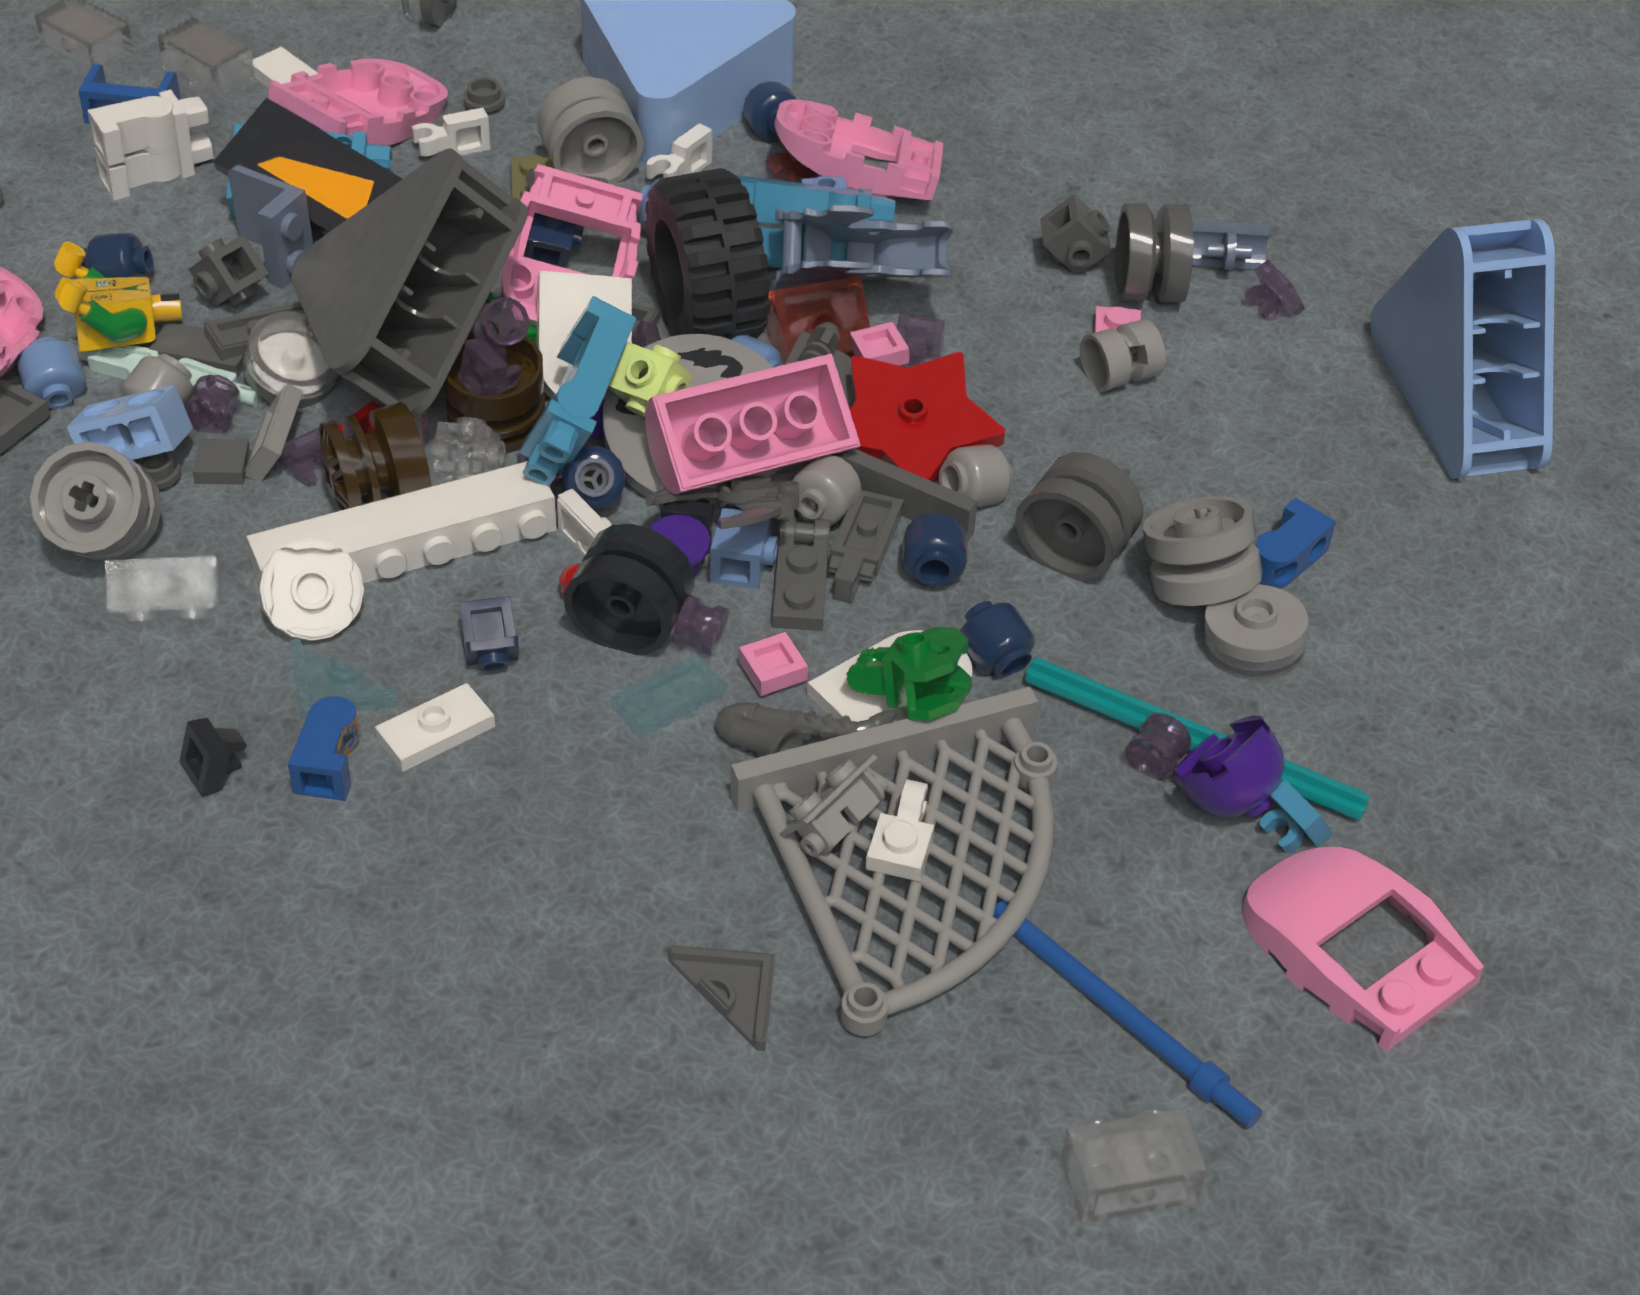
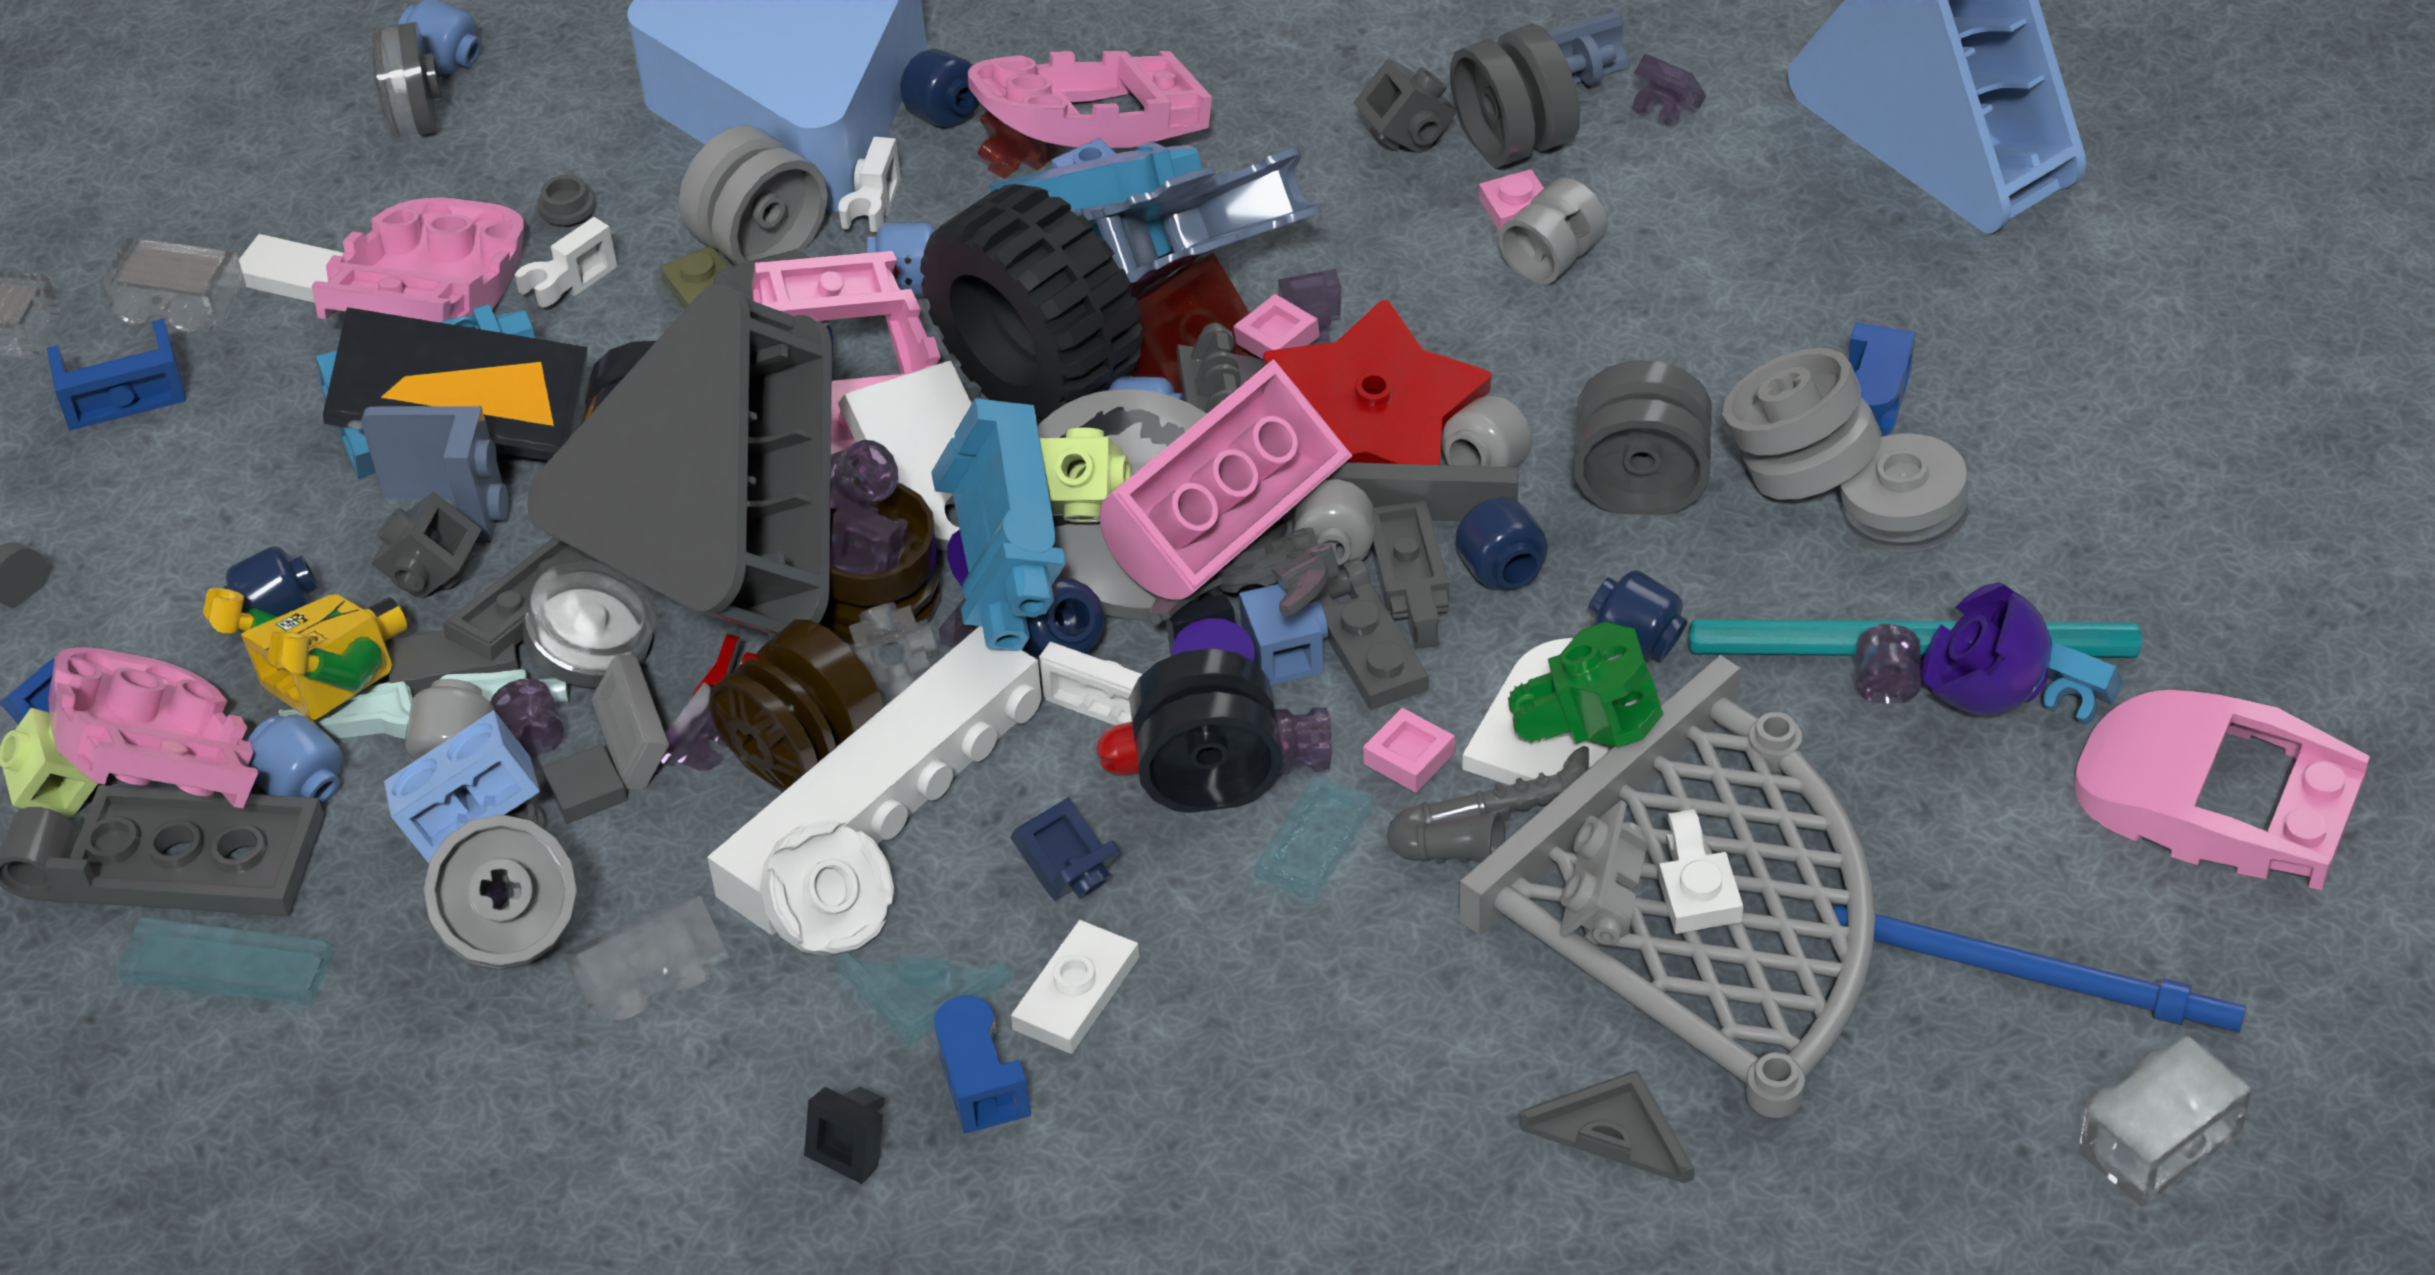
camera: 20 degrees left, 0 degrees up
(148, 141) = (197, 422): white hips -> none

